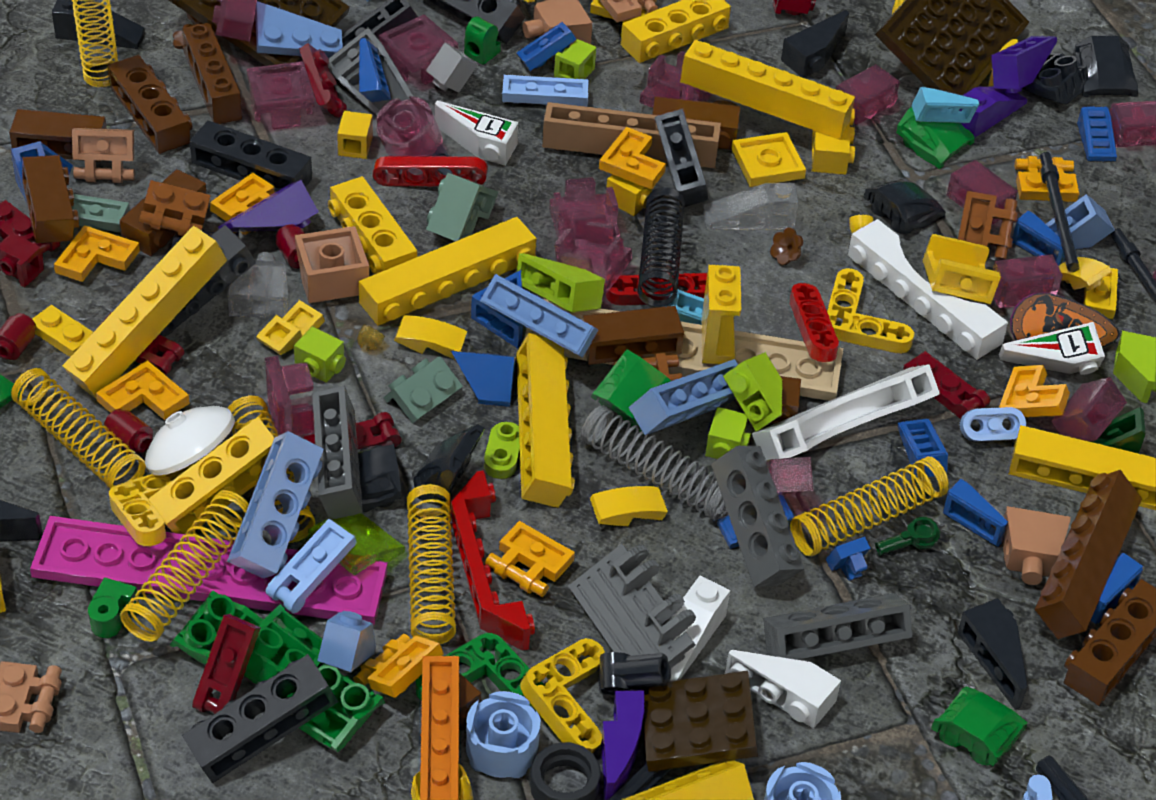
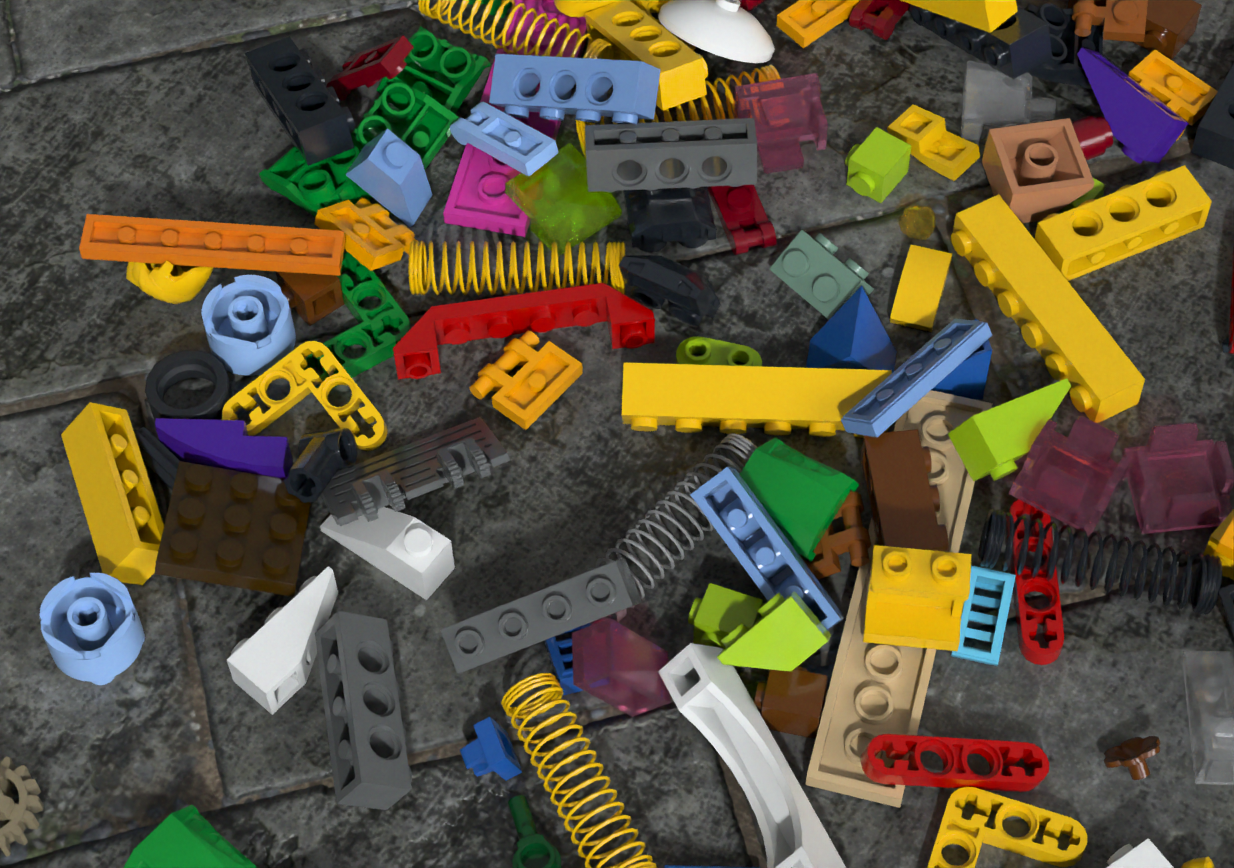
camera: 100 degrees right, 10 degrees up
(459, 207) = (1168, 312): sand green brick -> none
(625, 503) = (609, 493): yellow slope -> none

